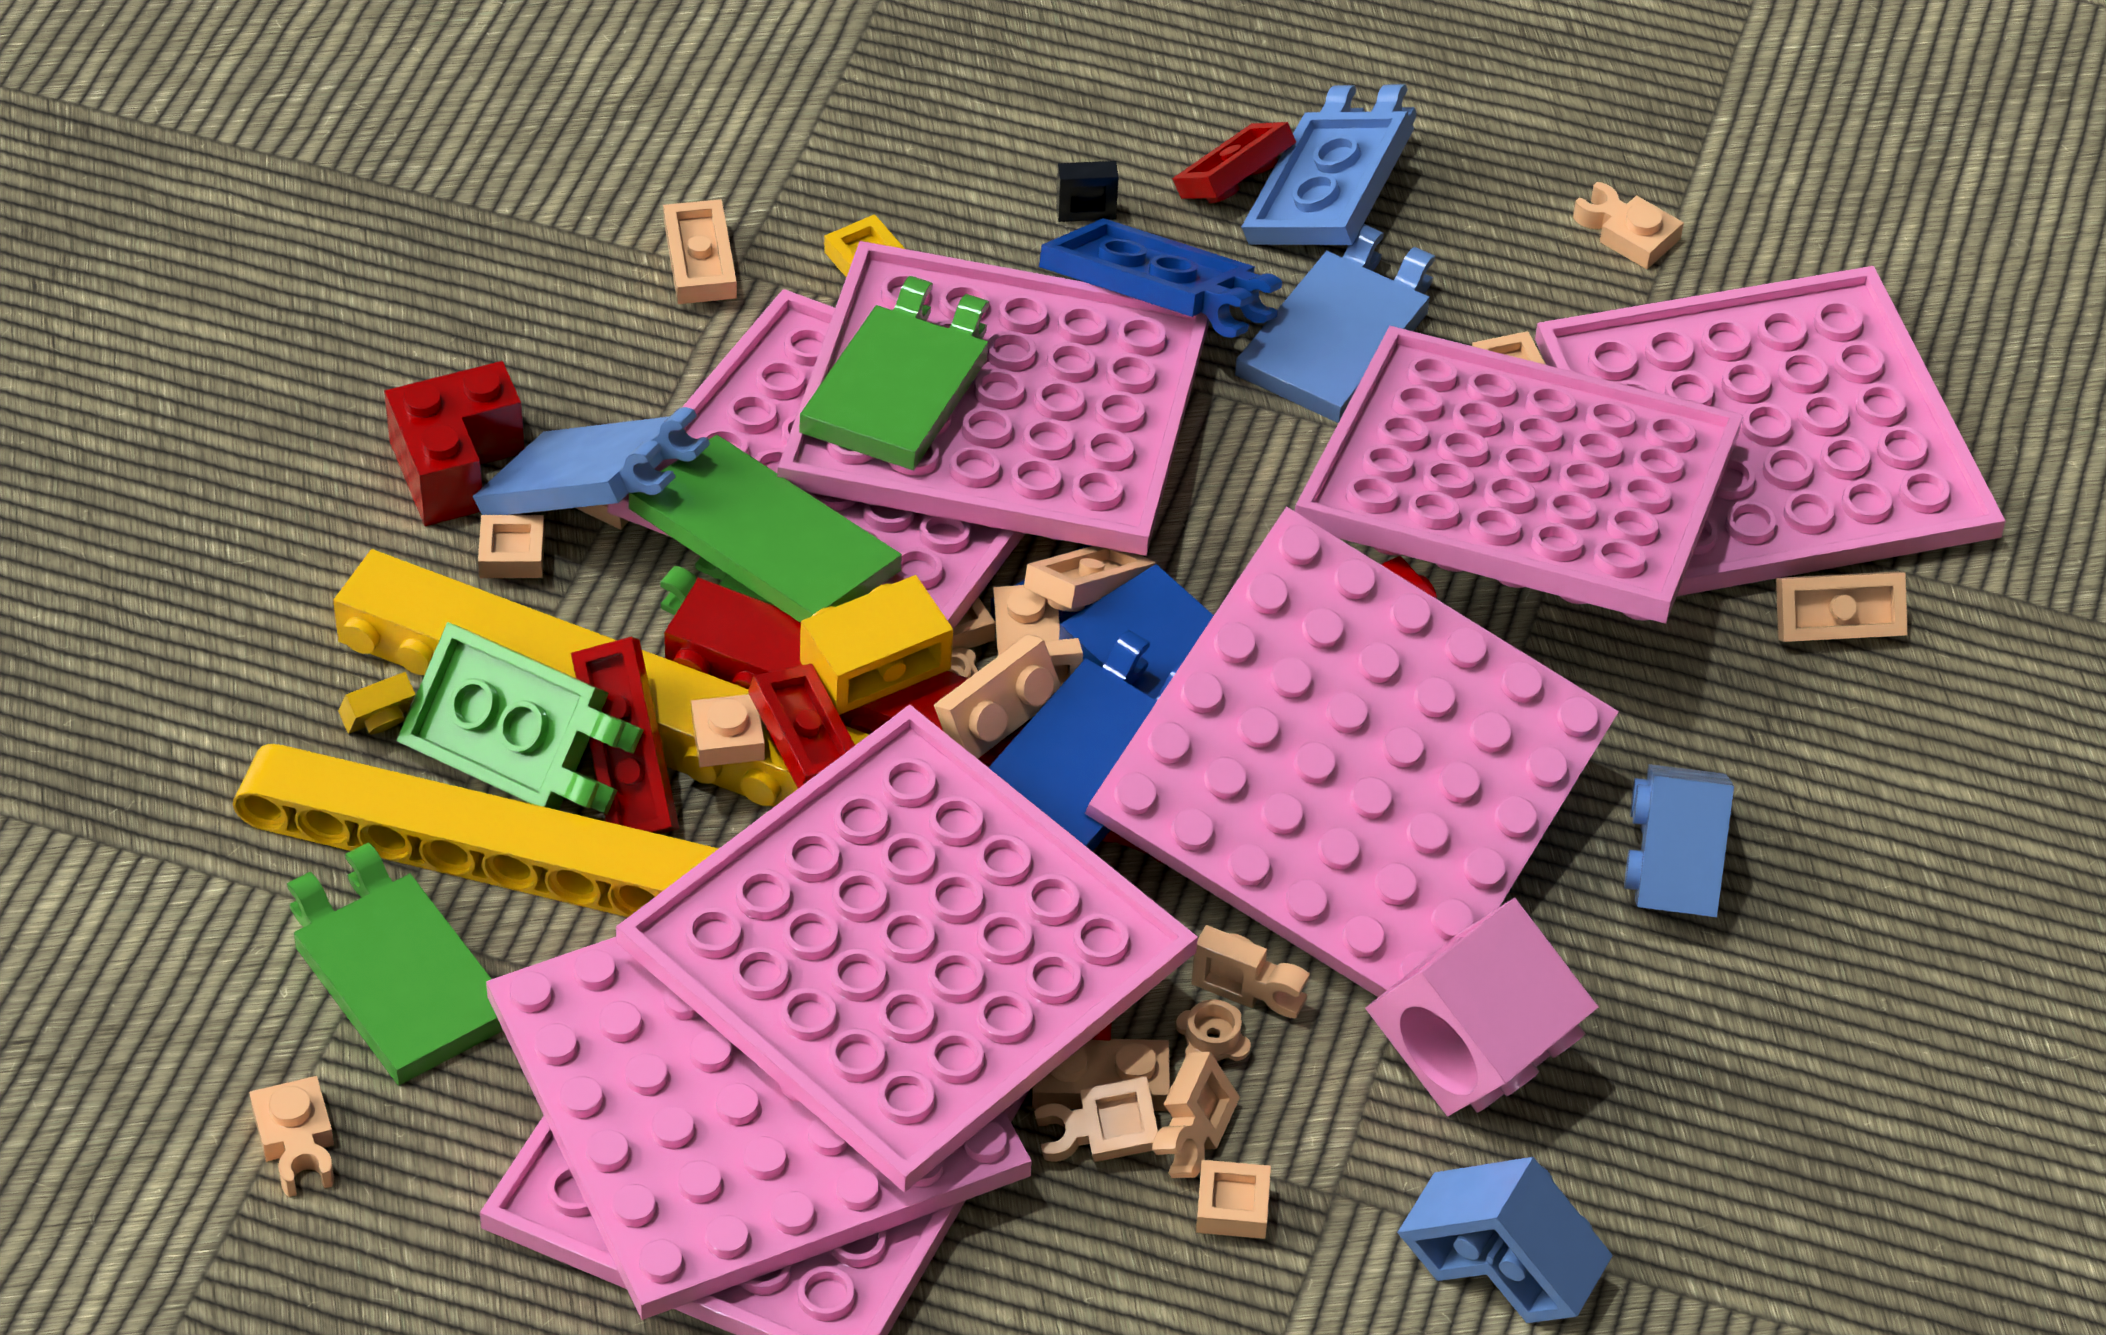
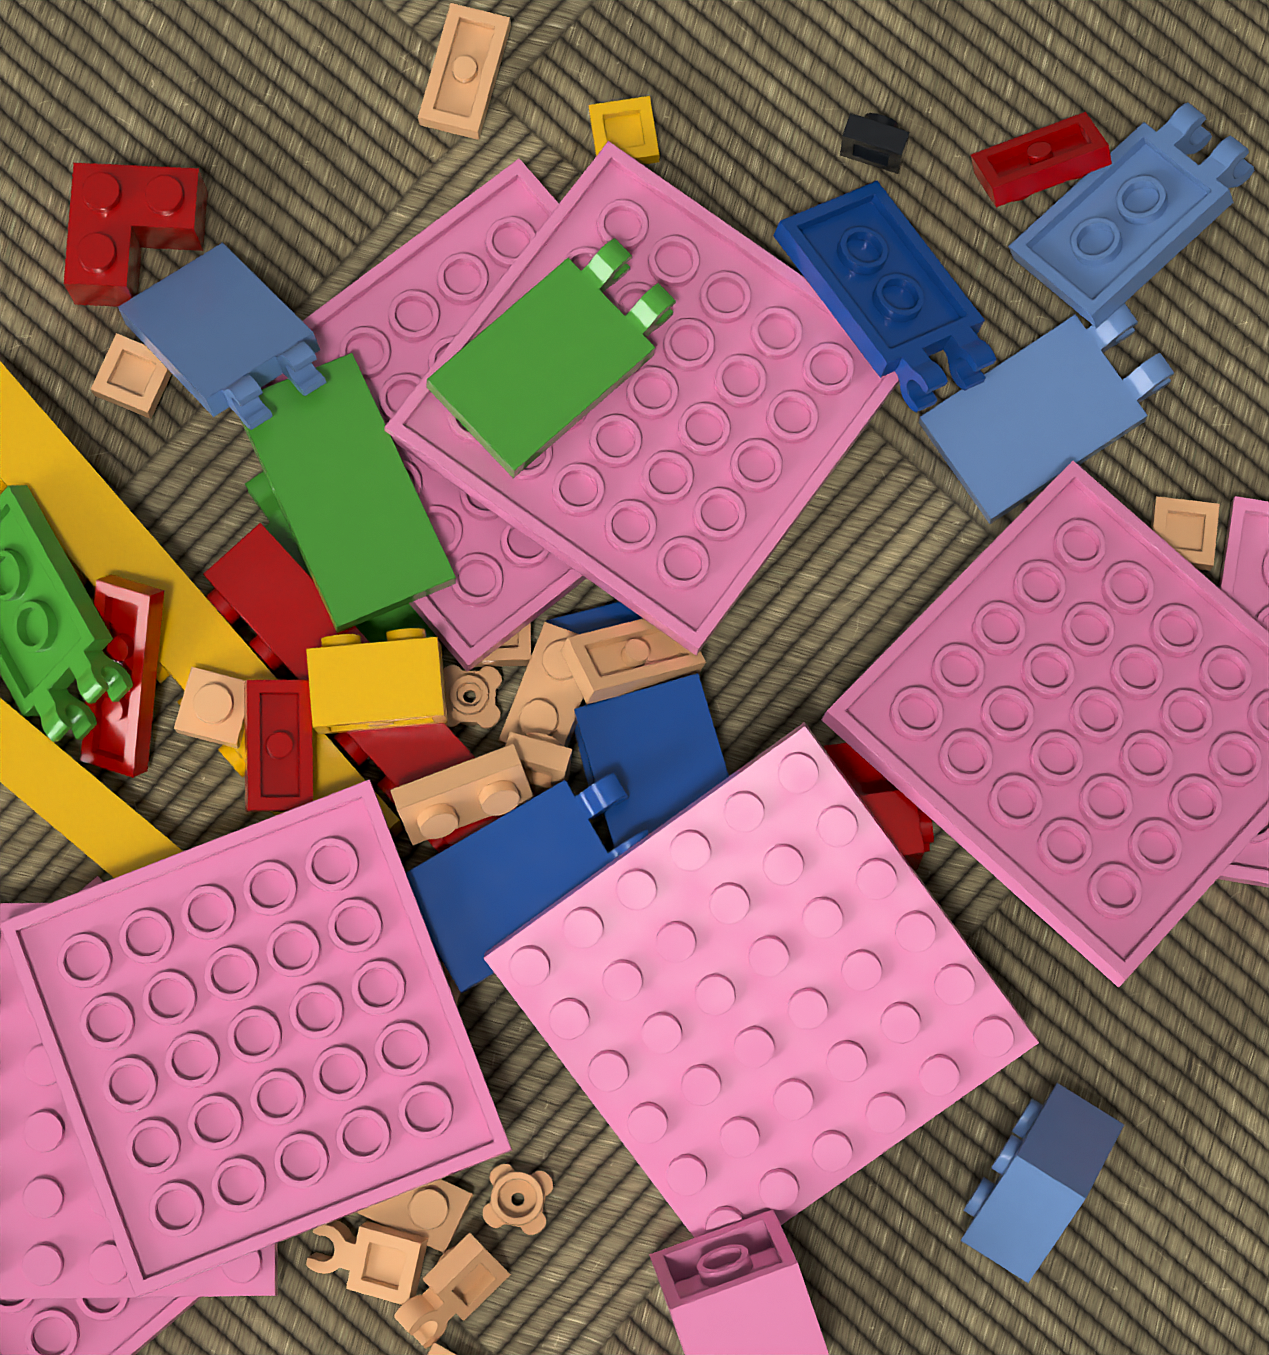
camera: 30 degrees right, 30 degrees up
(1239, 971) = (568, 1140): light nougat plate -> none

